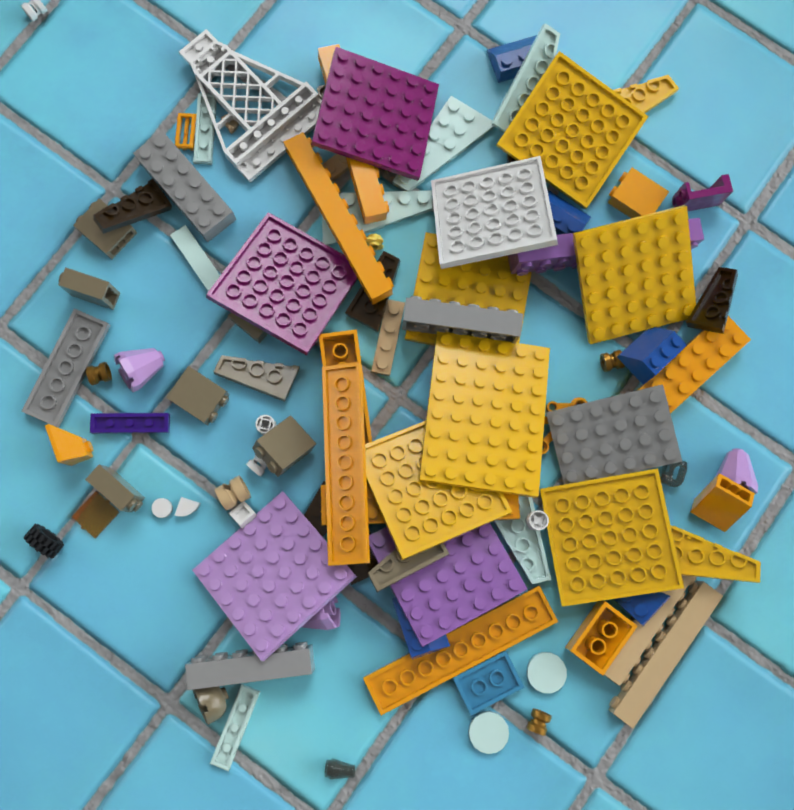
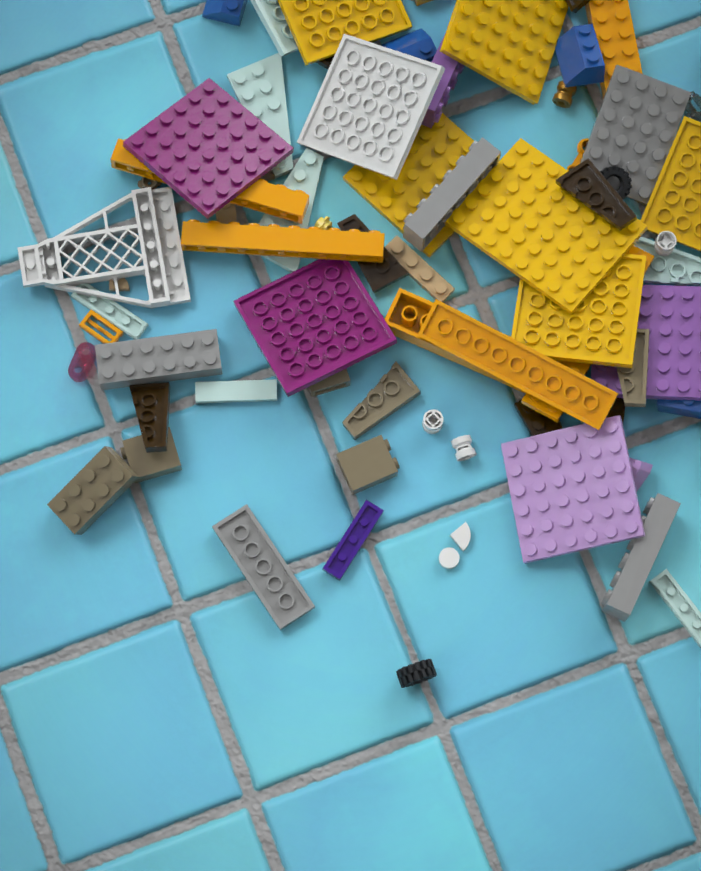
camera: 55 degrees left, 5 degrees down
(44, 201) = (93, 490): none -> dark tan brick
(68, 447) = (341, 601): light orange slope -> none
(89, 288) = (205, 499): dark tan brick -> none
(95, 514) = (417, 621): clear orange piece -> none
(98, 373) = (288, 540): pearl gold wheel -> none
(115, 489) = (410, 582): dark tan brick -> none
(138, 366) = (307, 501): lavender cone -> none
(149, 132) = (82, 361): none -> clear pink plate
(211, 702) = (649, 612): dark tan cylinder -> none
(232, 493) = (476, 485): tan wheel -> none
(243, 514) = (501, 489): white plate -> none
(283, 446) = (464, 414): dark tan brick -> none
(538, 434) = (596, 193): none -> dark brown wing
(570, 441) = (622, 175): none -> black tyre

